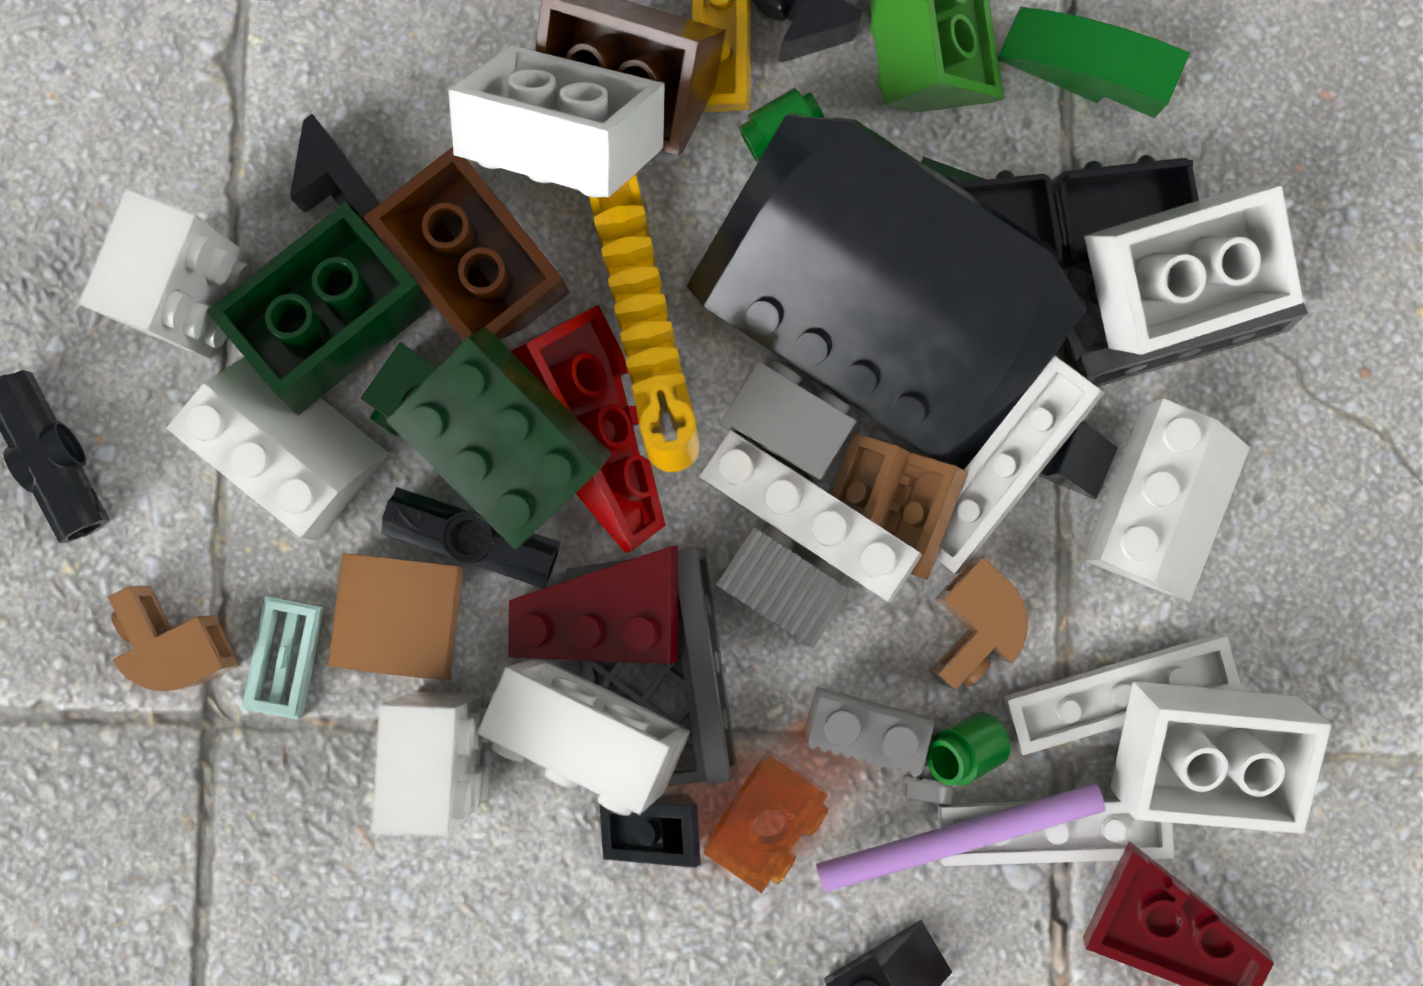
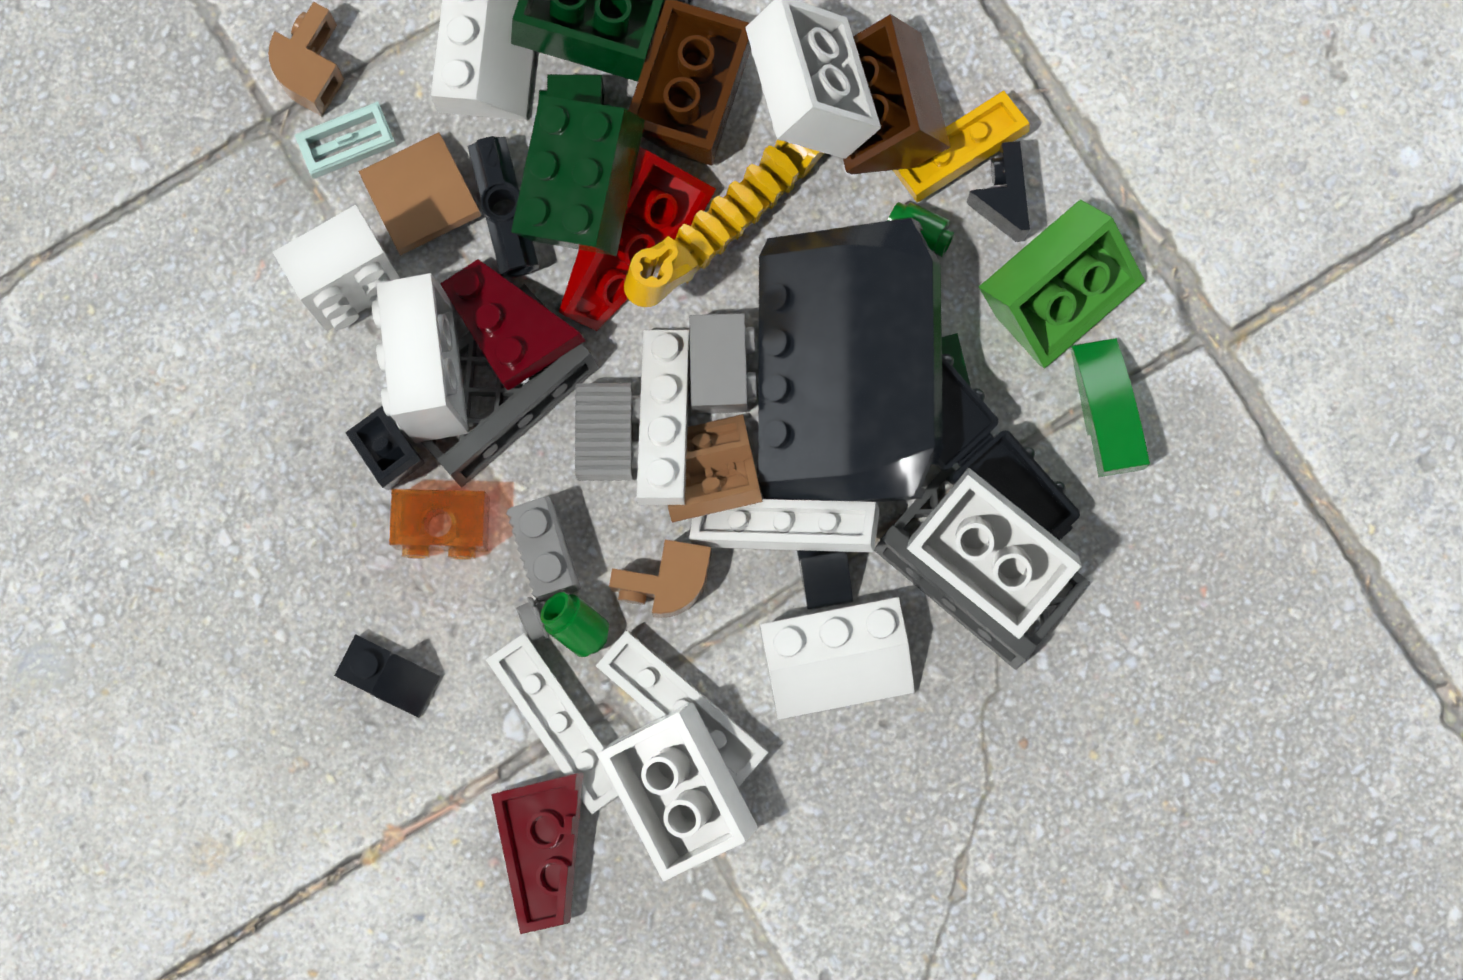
camera: 65 degrees right, 5 degrees down
(960, 837) = (511, 655): lavender piece -> none

